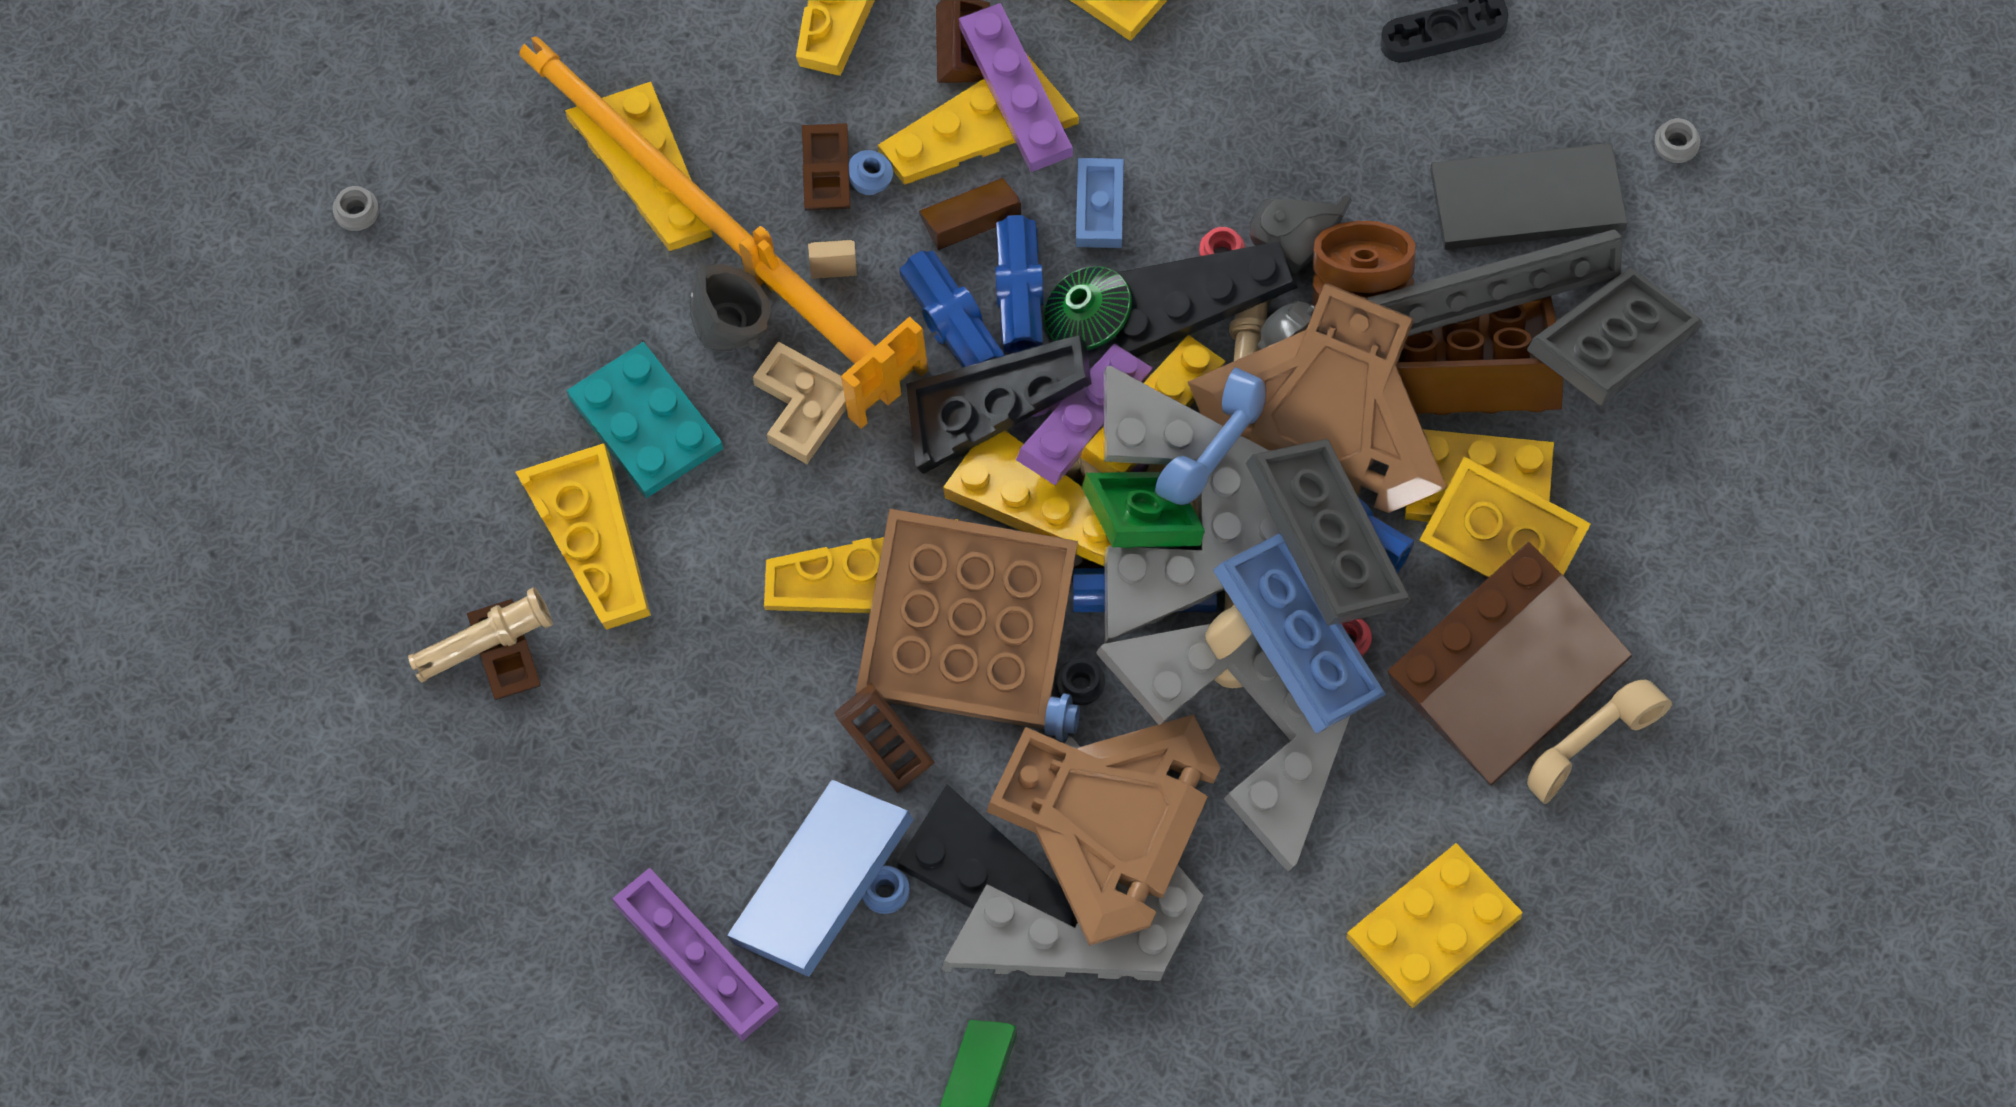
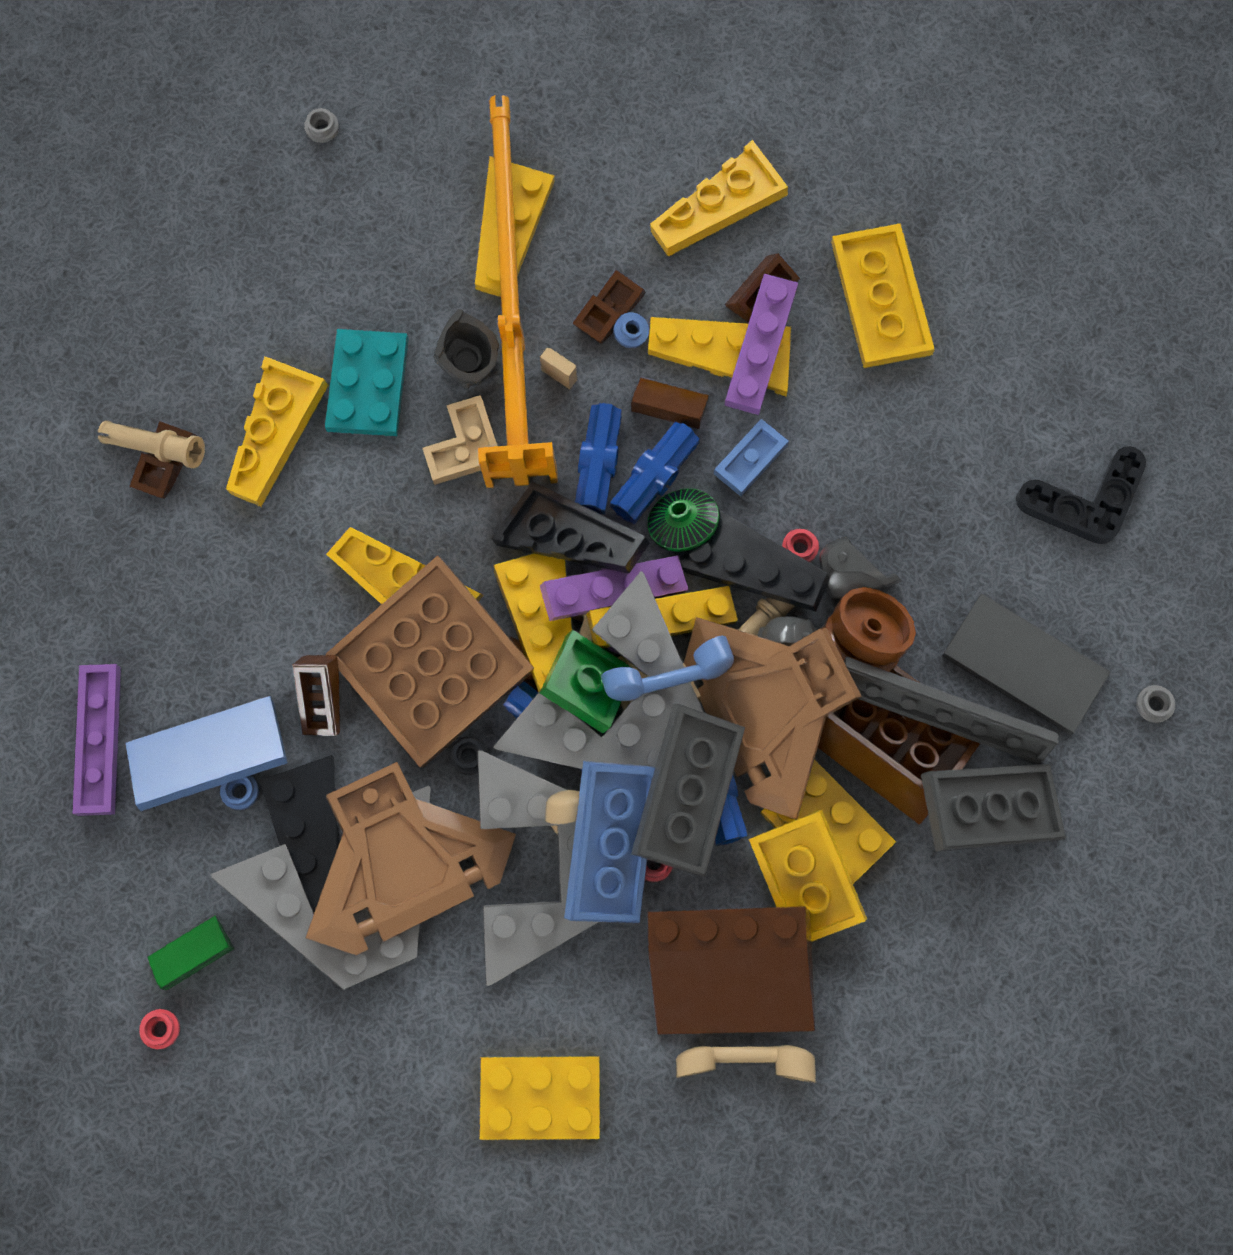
camera: 40 degrees right, 10 degrees up
(1061, 717) = (434, 770): medium blue plate -> none

